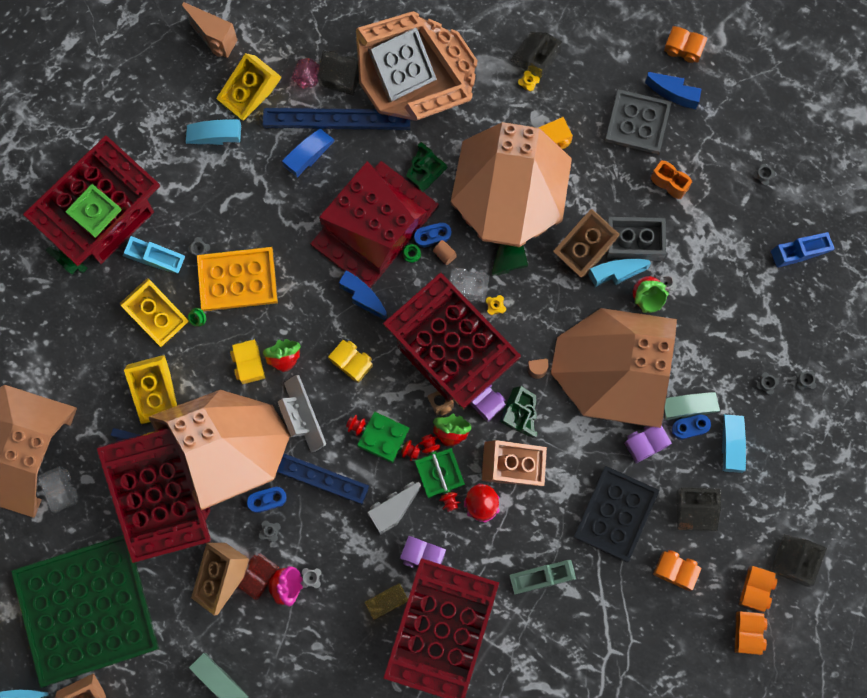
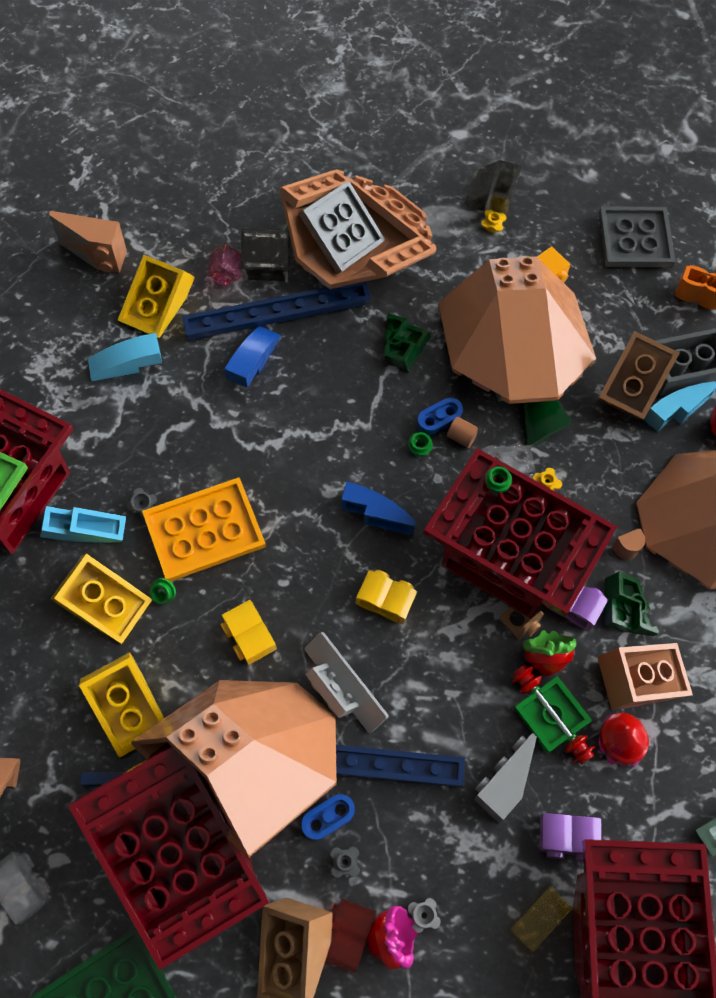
camera: 20 degrees left, 10 degrees down
(283, 355) = (294, 611): hair -> none
(372, 221) = (358, 419): dark red wedge -> none
(383, 437) = (463, 686): green plate -> none
(446, 294) = (501, 473): none -> green plate
(674, 90) = (663, 193): blue slope -> none
(685, 44) = (656, 146): orange brick -> none

